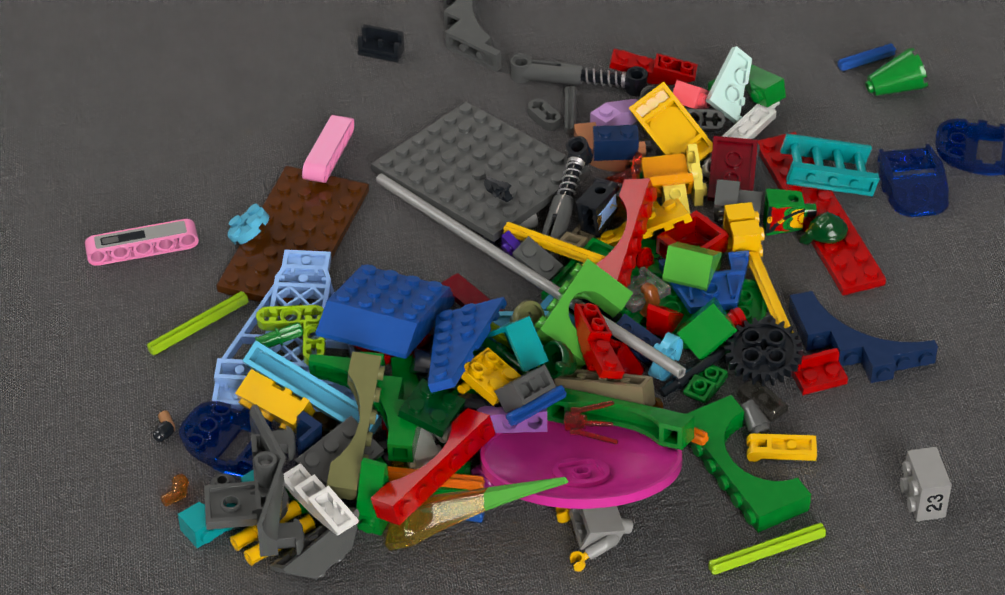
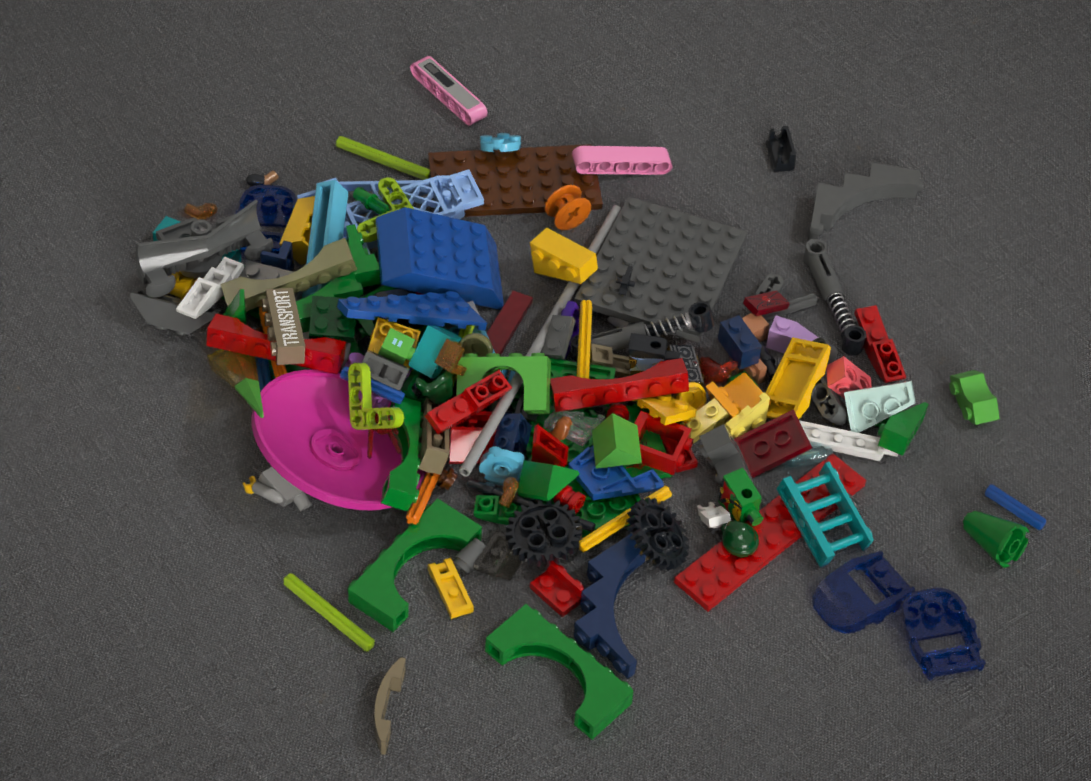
camera: 60 degrees right, 5 degrees up
(368, 204) = (577, 207): none -> orange piece
(434, 440) = (284, 326): none -> dark tan brick
(440, 225) = (561, 258): none -> yellow wedge
(506, 366) = (397, 347): none -> bright green brick
(547, 326) = (450, 356): none -> clear orange panel
(570, 115) = (766, 303): none -> dark red tile
(571, 419) = (365, 417): none -> lime beam
(697, 359) = (510, 487): none -> clear orange arm
(743, 228) = (687, 480): yellow piece -> none
(744, 33) = (974, 397): none -> bright green brick
(792, 237) = (713, 516): none -> white plate
(802, 275) = (661, 548): none -> black gear
(907, 544) = (392, 681): none -> dark tan slope
(925, 484) = (449, 701): light grey brick -> none
(949, 379) = (532, 635): none -> green arch

